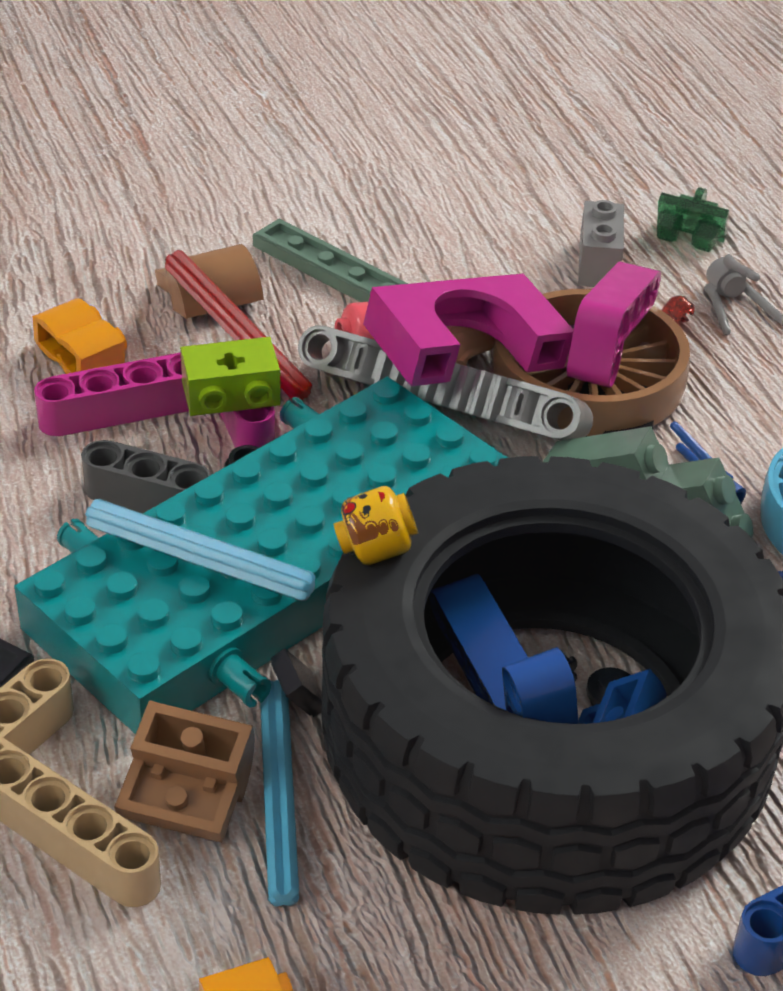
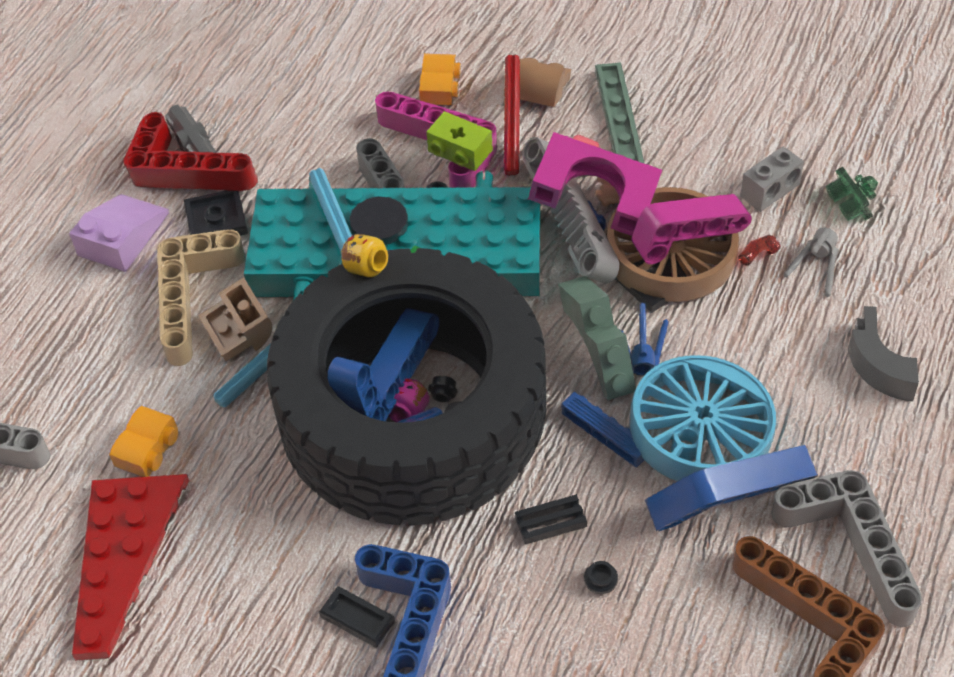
camera: 50 degrees right, 10 degrees up
(256, 515) = (379, 218): none -> black tile

